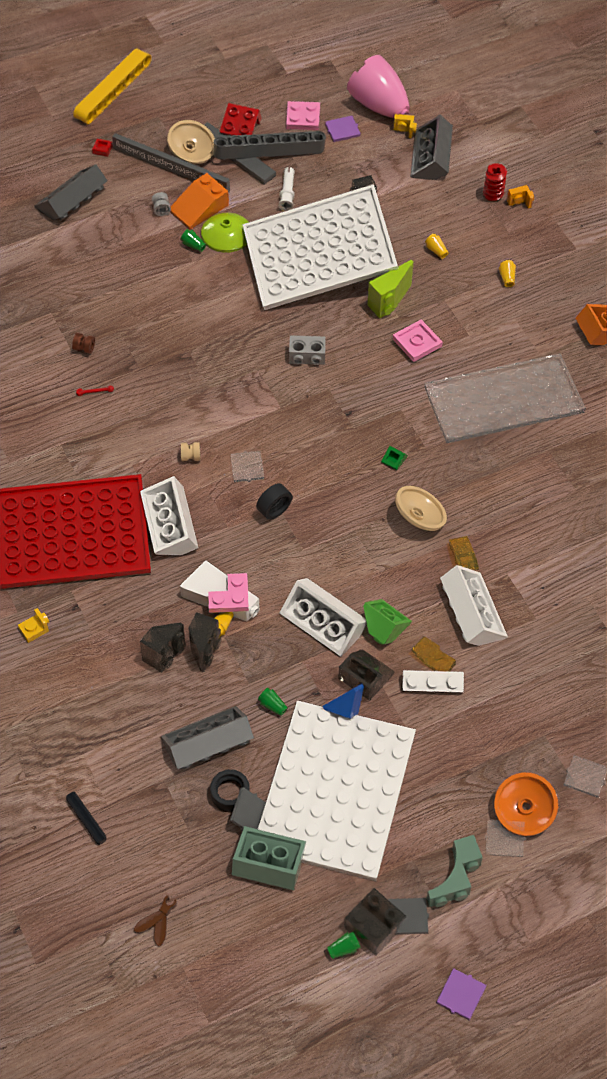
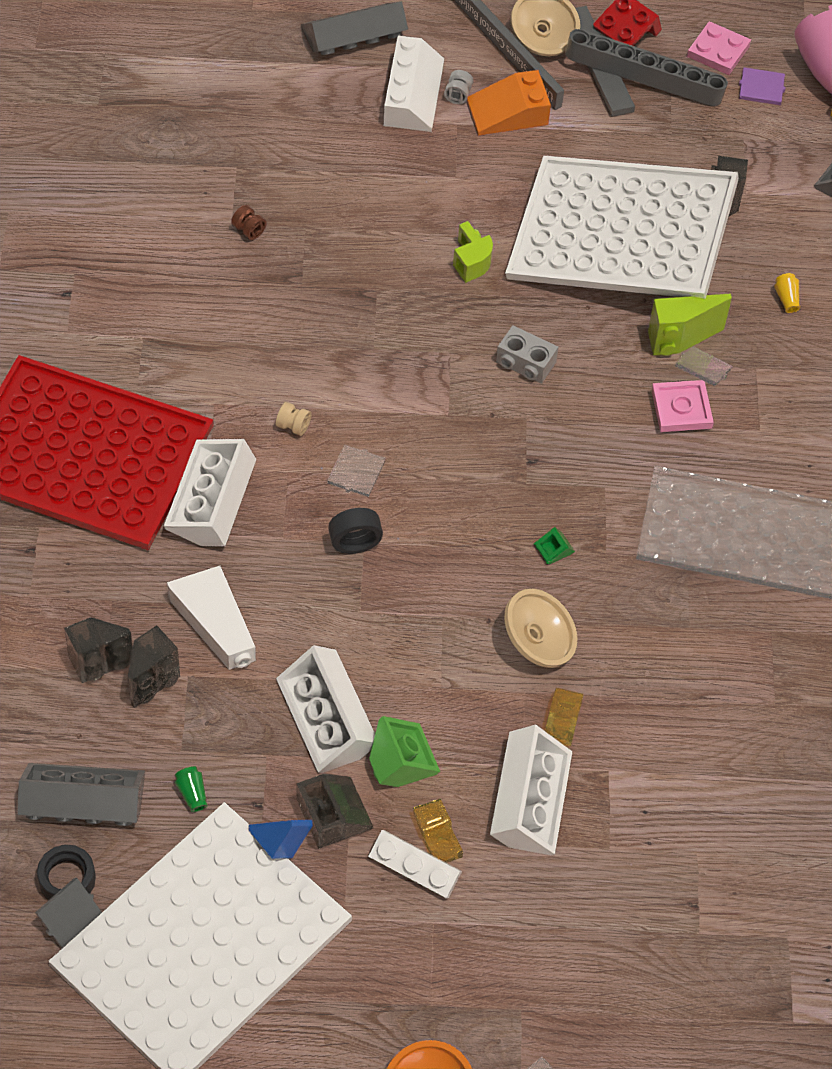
camera: 25 degrees right, 0 degrees up
(80, 392) = (207, 283): red hinge -> none
(131, 215) = (413, 85): none -> white slope
(192, 240) = (469, 149): green cone -> none
(224, 232) = (517, 156): lime dish -> none
(224, 620) = (194, 654): yellow cone -> none
(232, 600) = (224, 631): bright pink plate -> none
(236, 302) = (474, 255): none -> lime brick
(268, 858) = (55, 985): sand green slope -> none
(286, 193) = (631, 140): white pin -> none
(415, 311) = (703, 366): none -> clear piece

